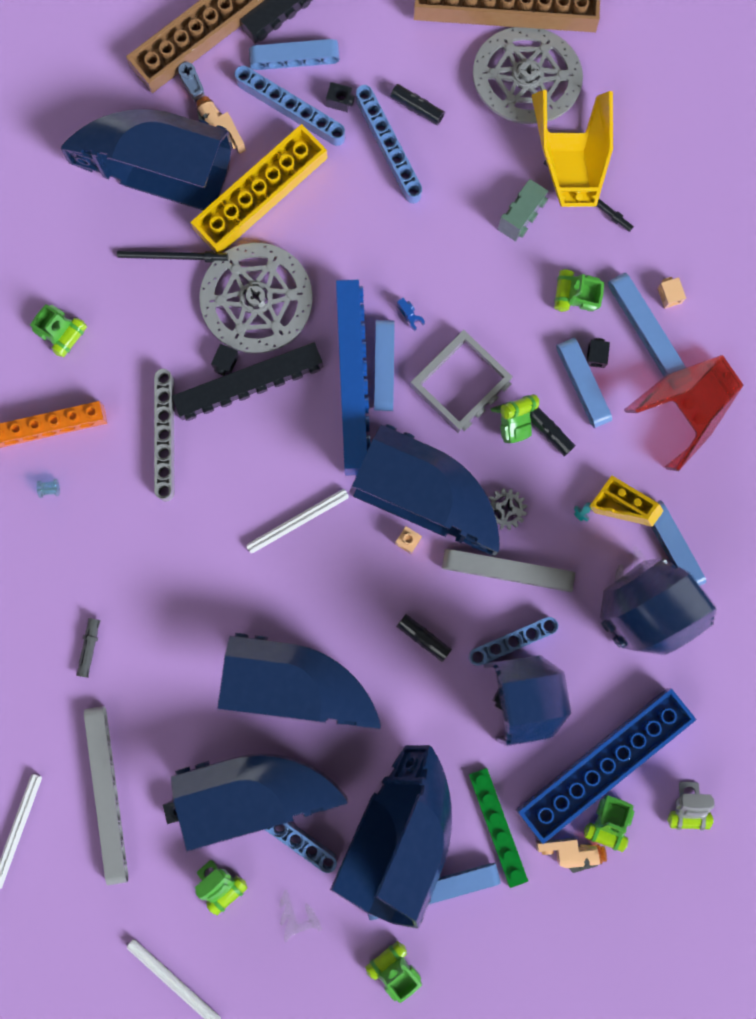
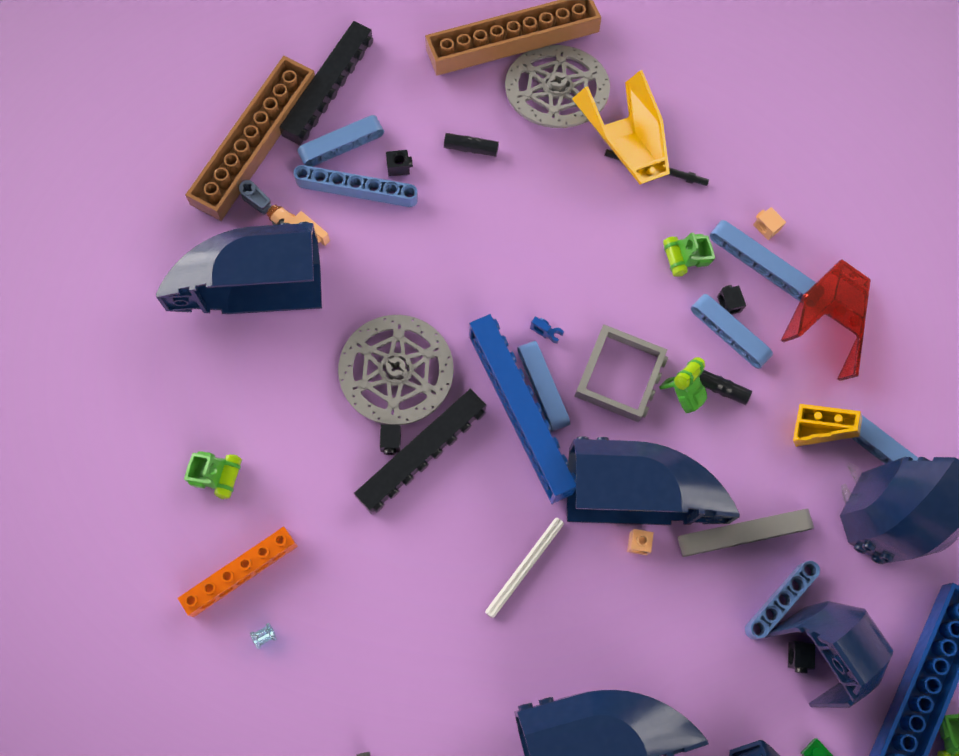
camera: 25 degrees left, 10 degrees down
(159, 427) = (353, 528): light grey beam -> none
(208, 256) = (335, 348): black bar -> none
(259, 189) = (358, 270): yellow brick -> none
(388, 135) = (457, 179): medium blue beam -> none
(424, 638) = (697, 632): black axle -> none
(515, 511) = (727, 472): light grey gear -> none
(523, 210) = (607, 201): sand green wedge -> none
(581, 514) = (786, 451): teal plate -> none

